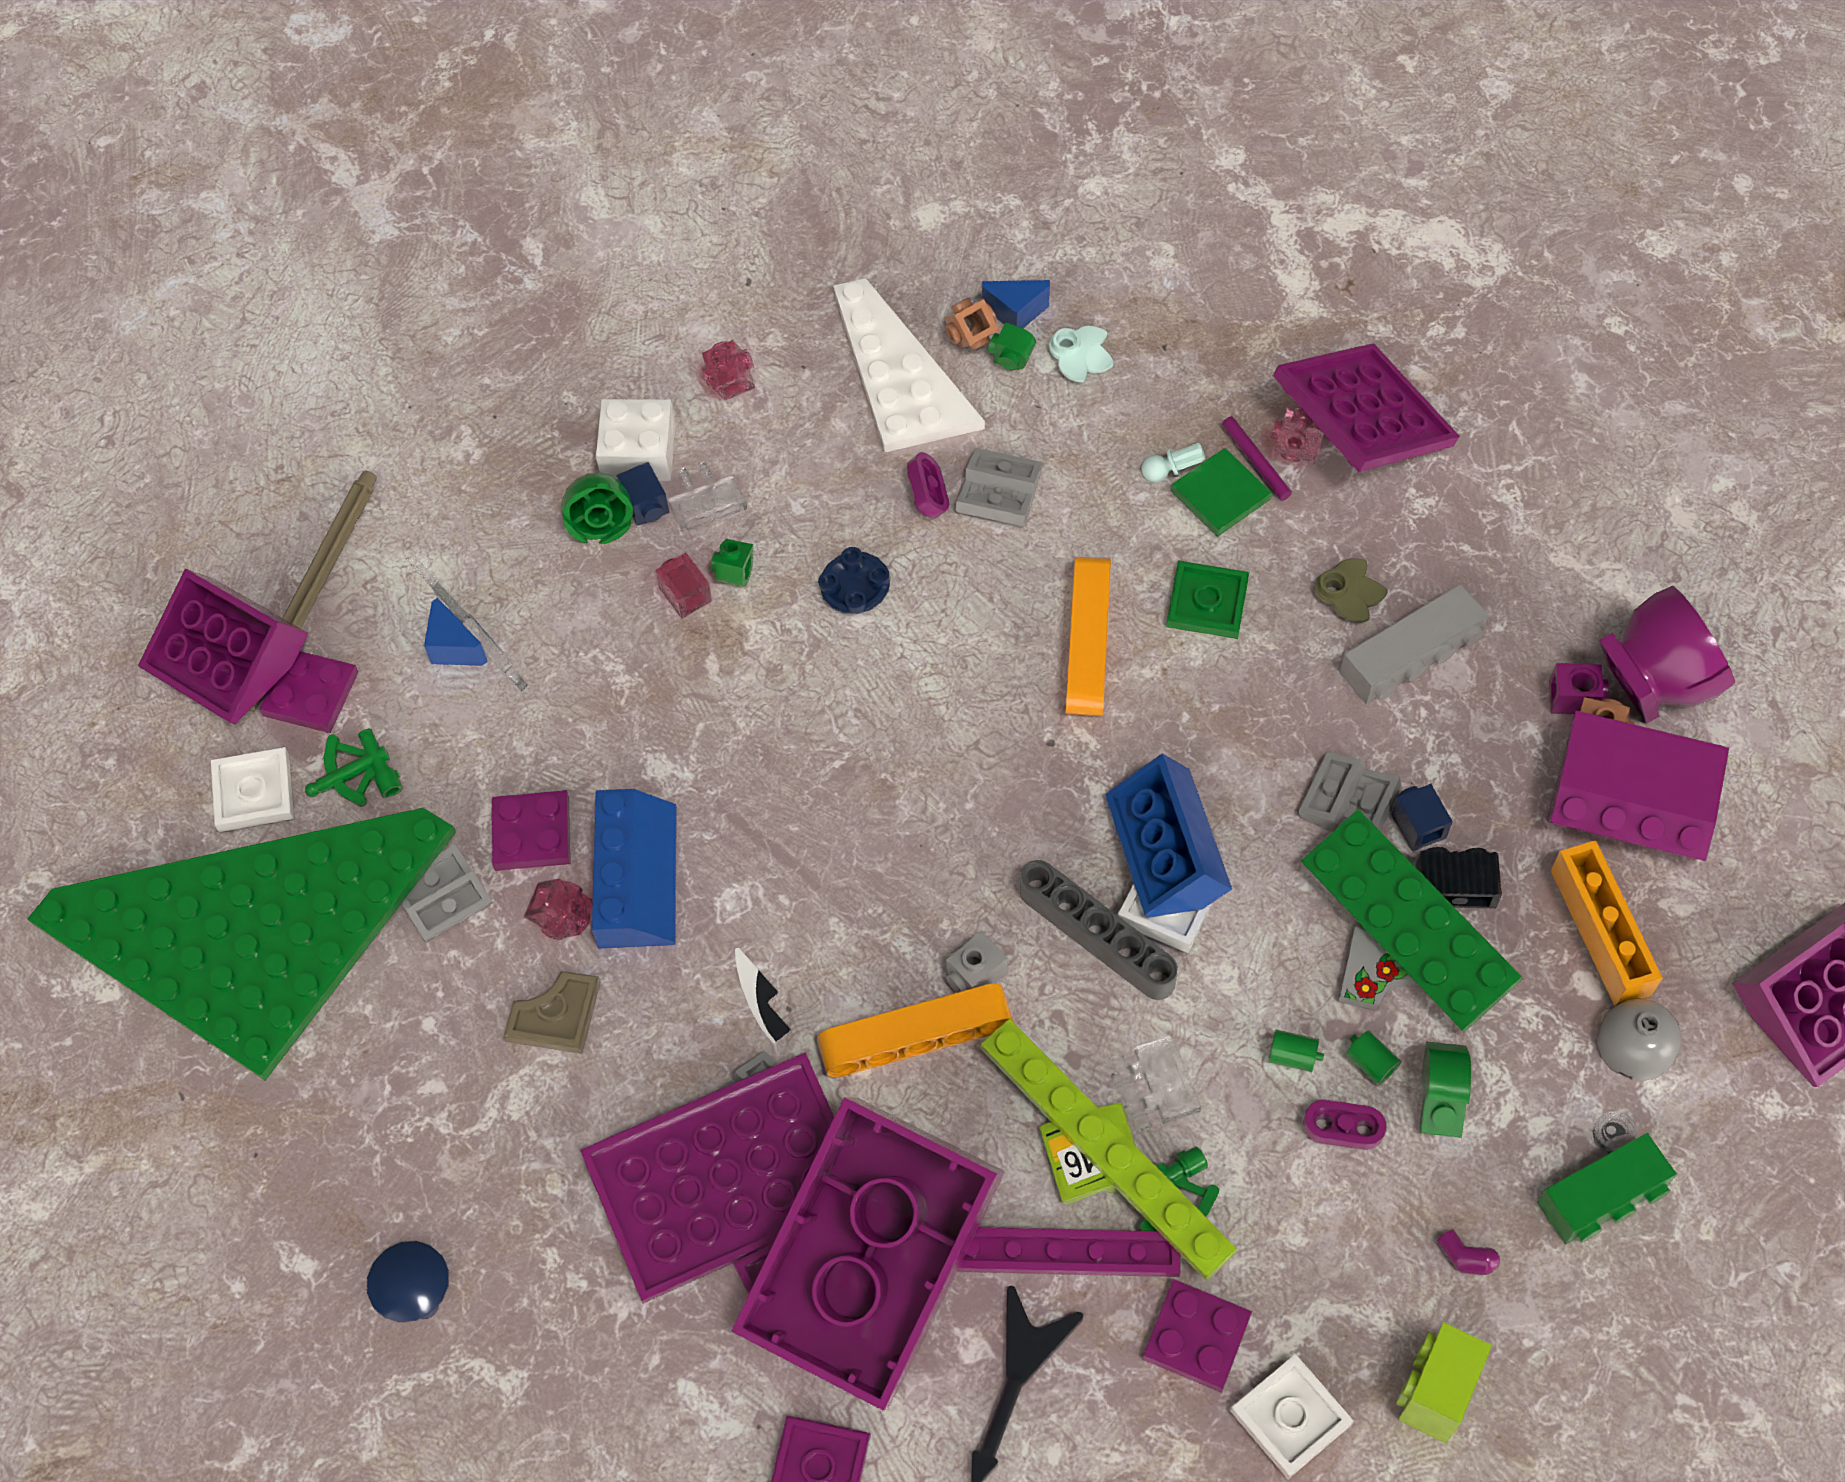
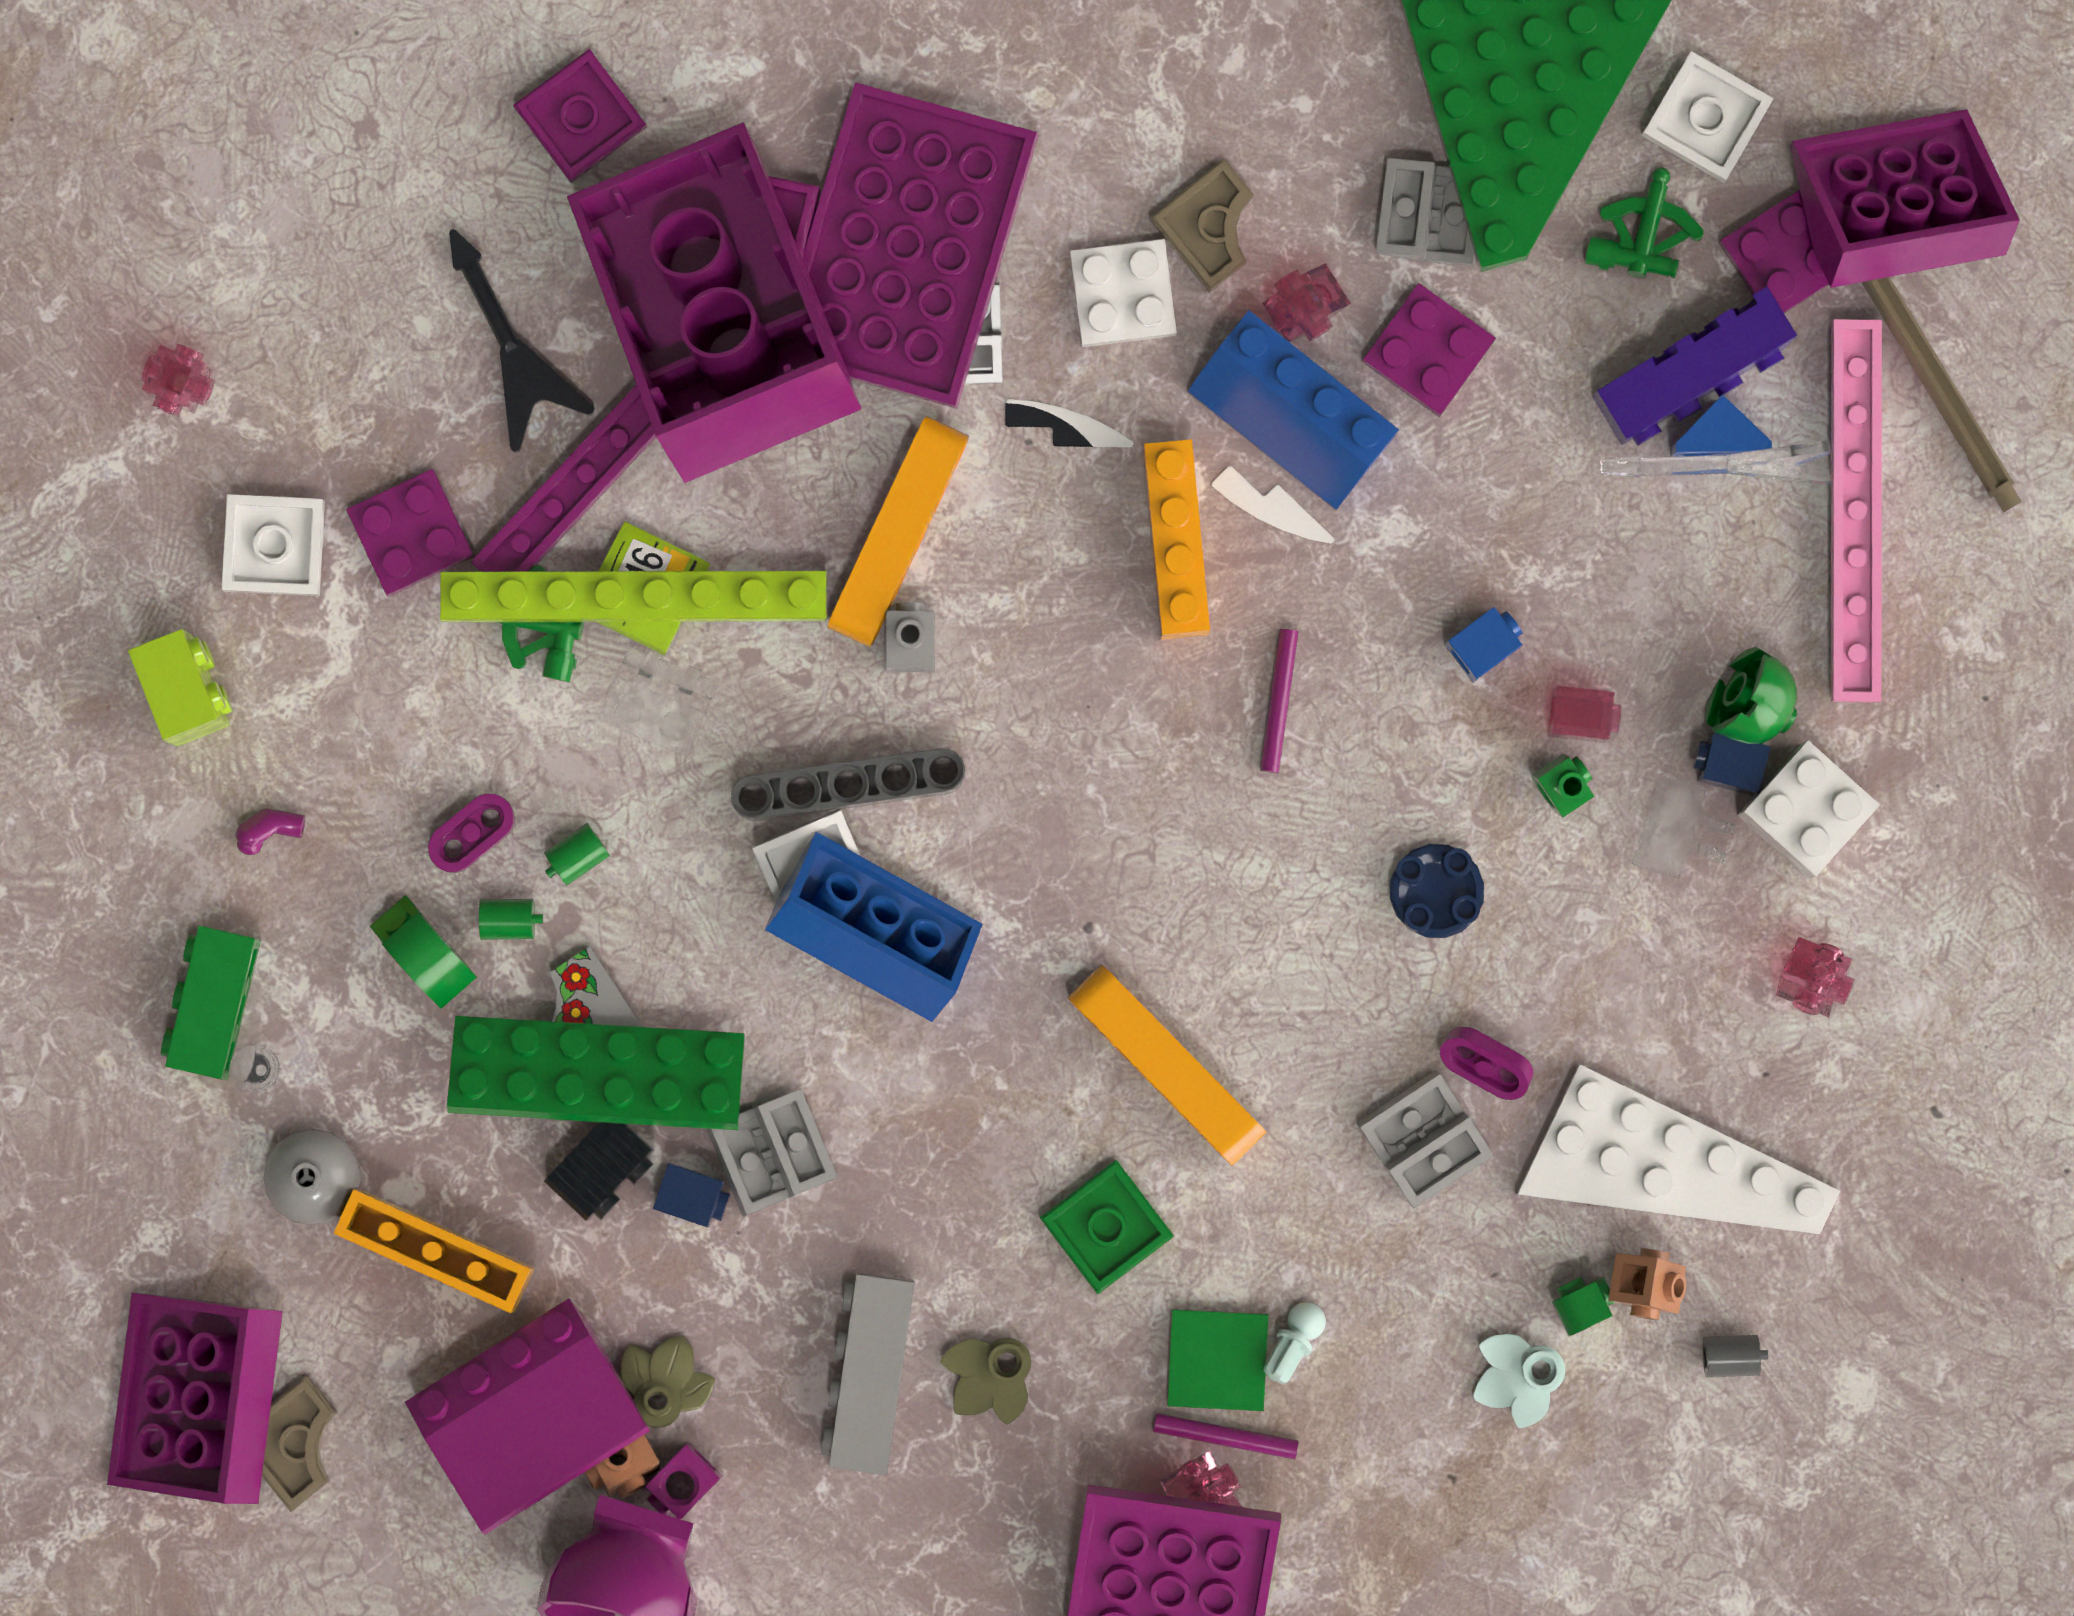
camera: 125 degrees right, 25 degrees up
(415, 674) = (1696, 368): none -> dark purple wedge
(436, 544) = (1856, 510): none -> bright pink plate
(643, 1027) = (1123, 293): none -> white plate
(687, 662) = (1485, 643): none -> blue brick
(705, 839) = (1275, 508): none -> white sticker
(774, 868) = (1176, 539): none -> light orange brick
(820, 745) = (1279, 701): none -> magenta bar
(969, 268) = (1732, 1356): none -> dark grey piece
(1017, 300) = (1639, 1363): blue slope -> none
(1530, 749) = (665, 1374): none -> olive plate
(1784, 920) = (293, 1443): none -> dark tan tile

